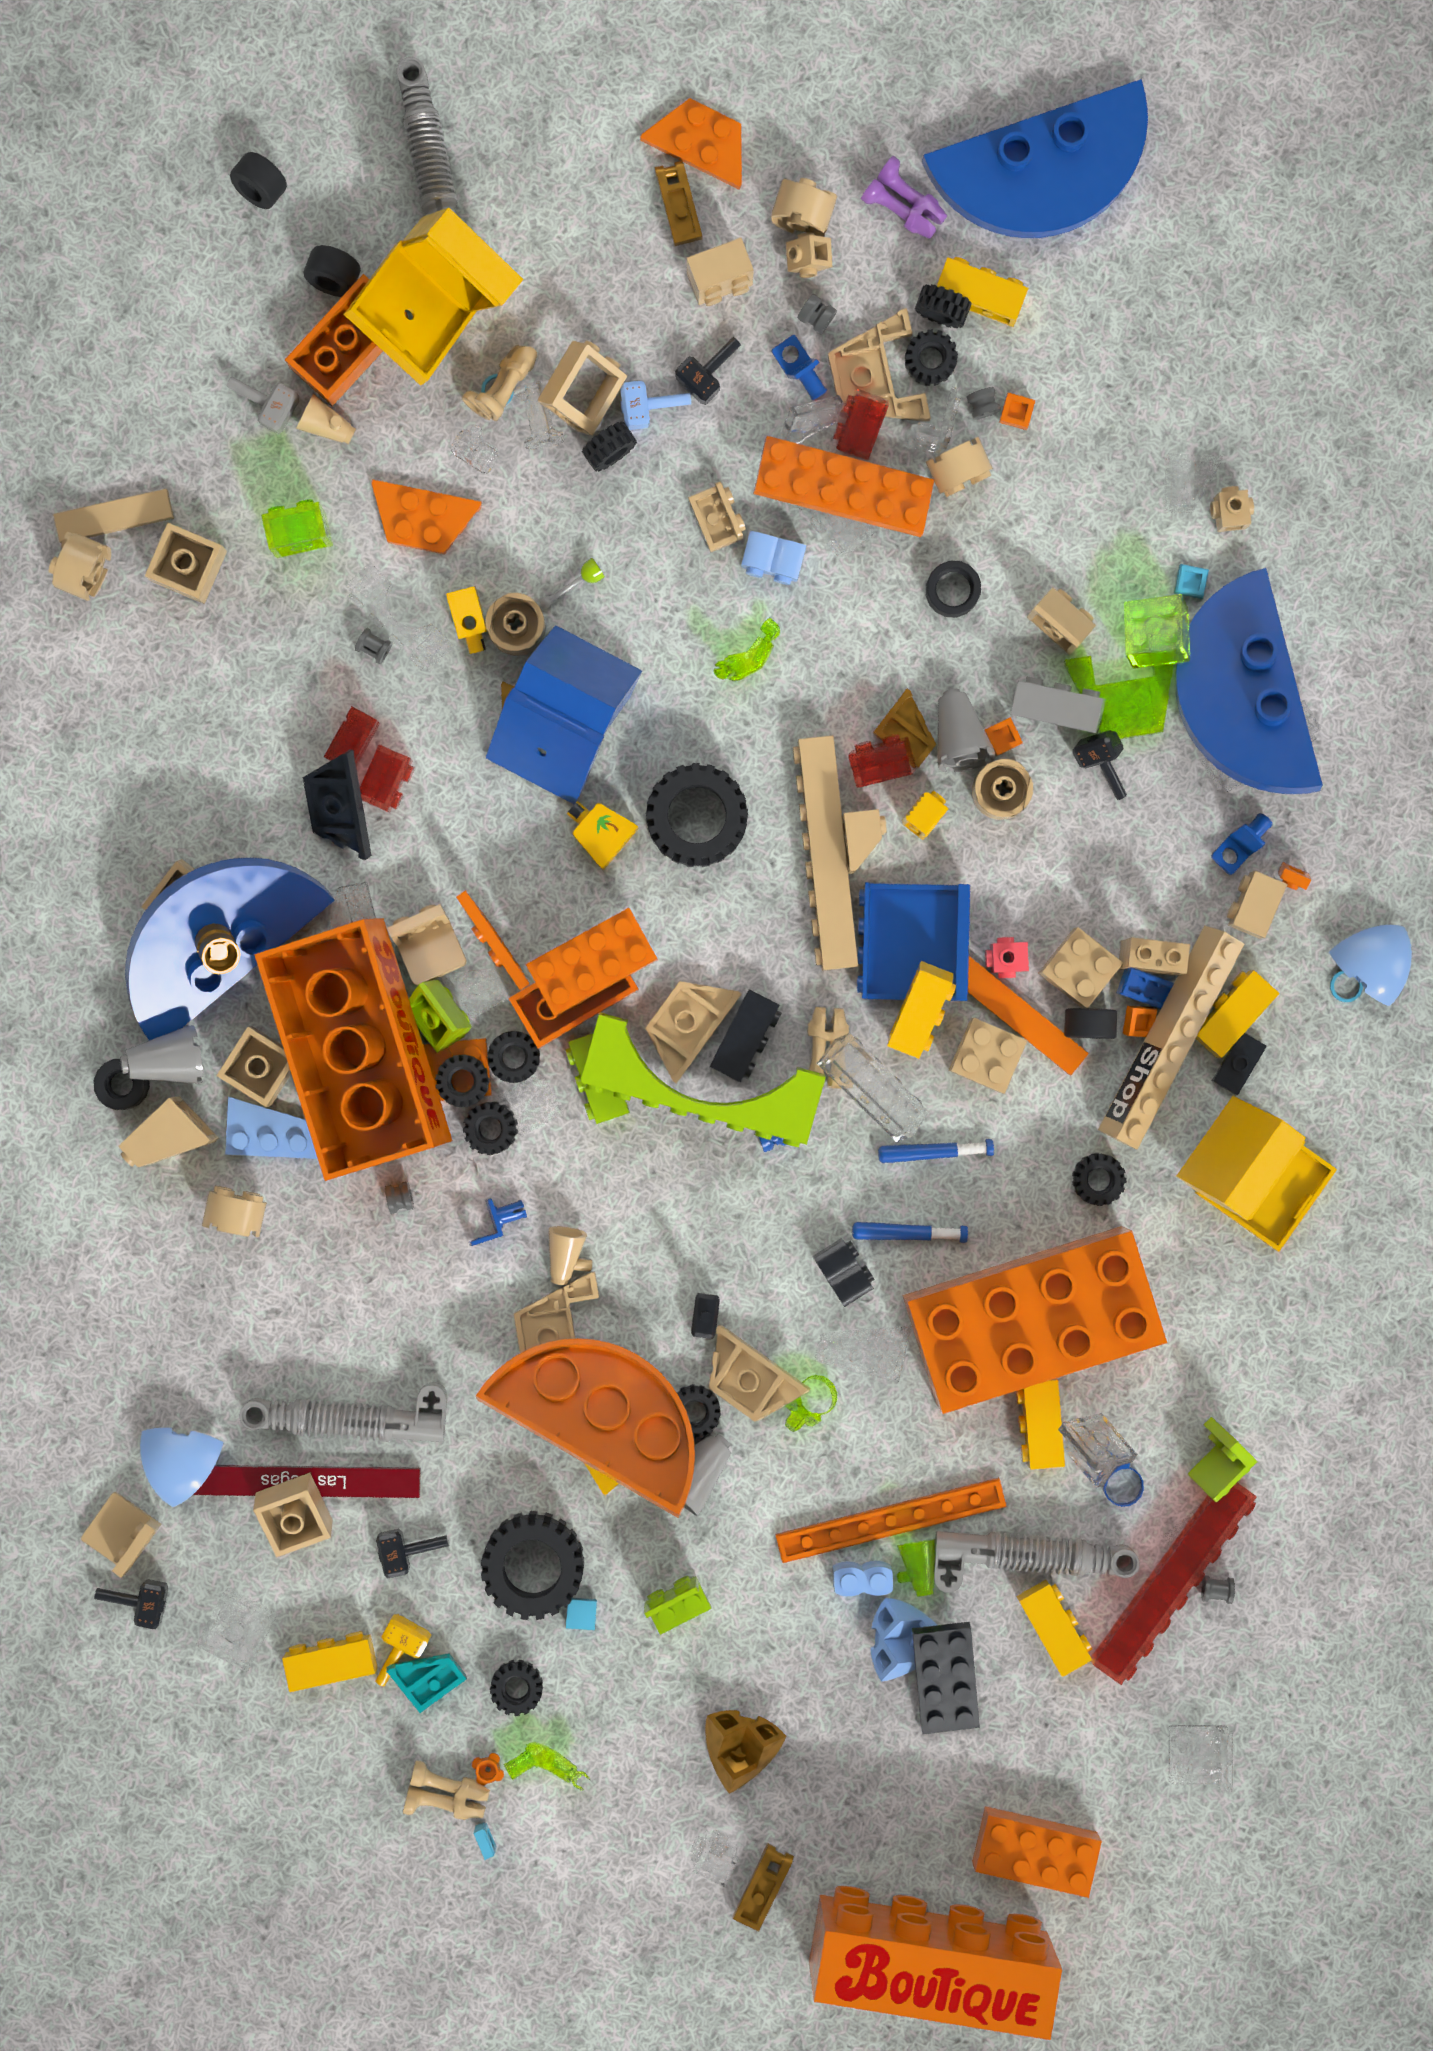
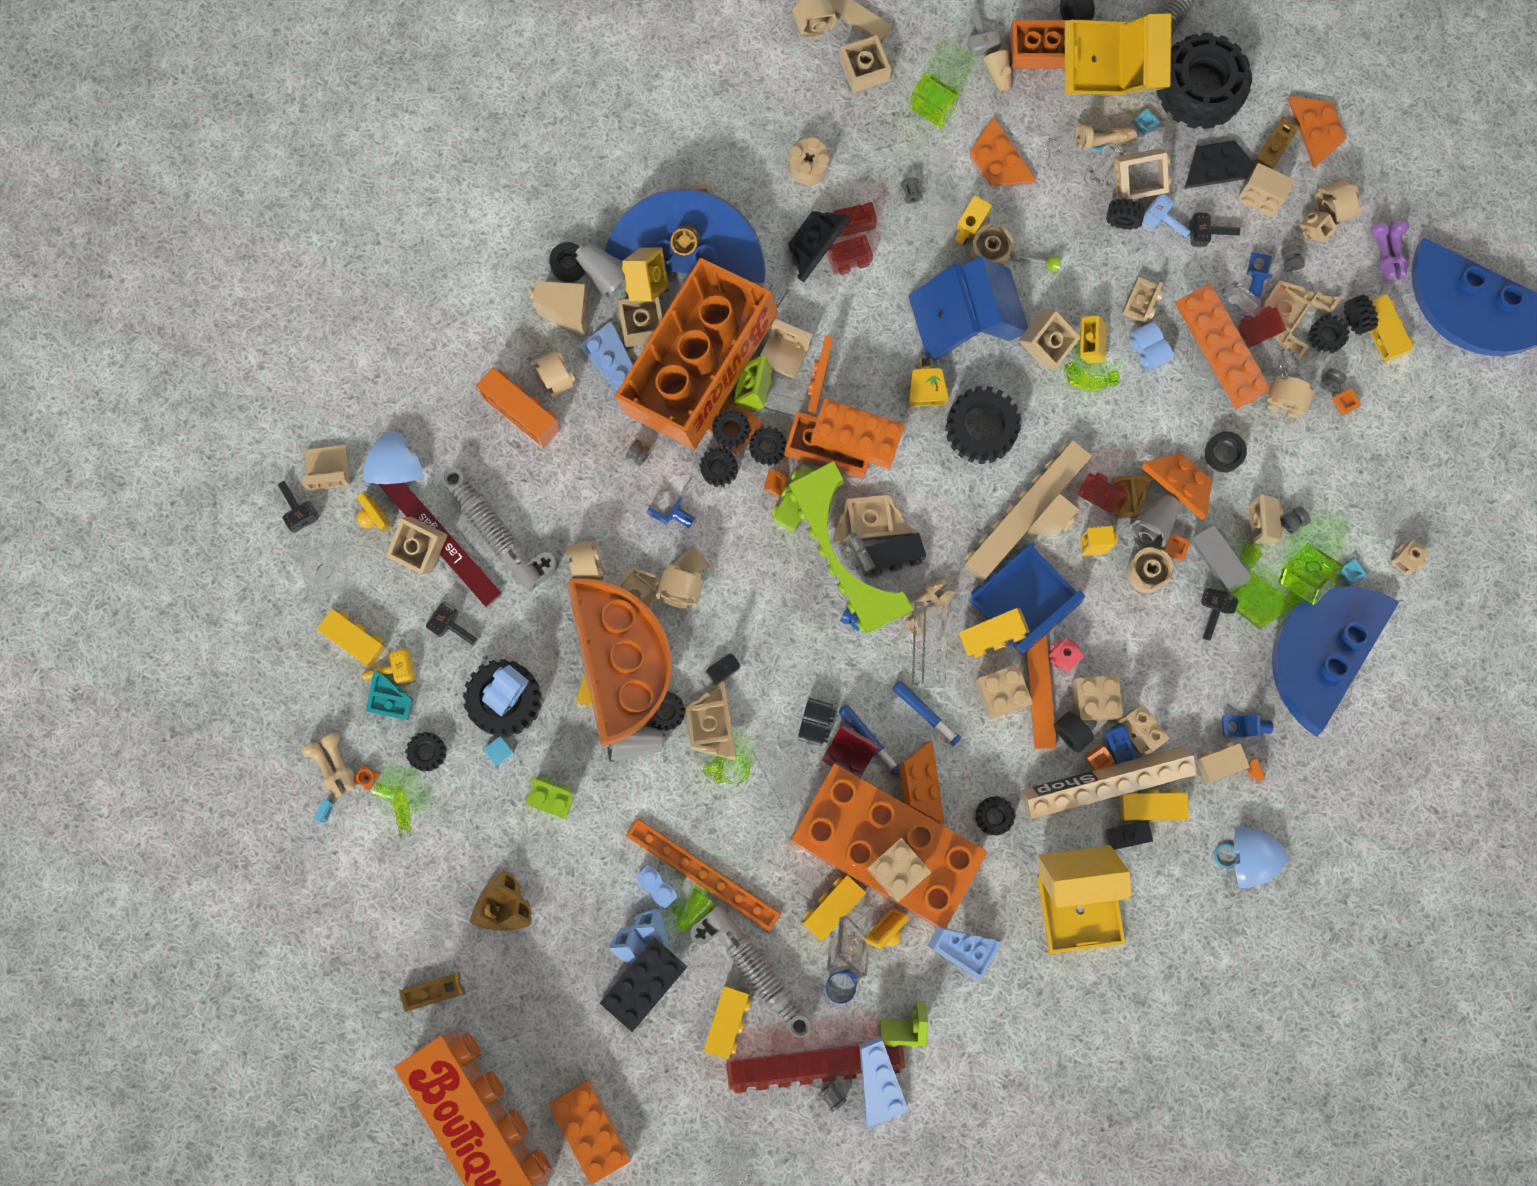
camera: 40 degrees right, 10 degrees down
(215, 1528) = (371, 514): none -> yellow tile
(216, 1022) = (645, 274): none -> yellow brick
(233, 712) = (802, 154): none -> tan brick
(239, 1281) = (518, 407): none -> orange brick
(468, 1359) = (585, 561): none -> tan brick
(525, 319) = (1145, 121): none -> medium azure tile
(529, 1560) = (504, 690): none -> light blue brick
(552, 259) = (1202, 106): none -> black tyre
(560, 1085) = (775, 482): none -> orange plate
(585, 1288) = (680, 587): none -> tan brick
(644, 288) = (1218, 164): none -> black wing
(670, 660) = (1049, 339): none -> tan brick
(709, 1080) = (853, 553): none -> clear wing
(712, 613) = (1093, 339): none -> yellow brick
(906, 1268) = (850, 751): none -> dark red bracket
(943, 663) = (1183, 481): none -> orange wing
(1001, 1223) = (921, 782): none -> orange wing
(1072, 1342) = (898, 870): none -> tan brick
(1087, 587) = (1296, 519): none -> dark grey wheel
(1111, 1391) = (887, 930): none -> yellow tile
(1201, 1336) = (965, 949): none -> light blue wing
(1250, 1535) = (880, 1084): none -> light blue wing

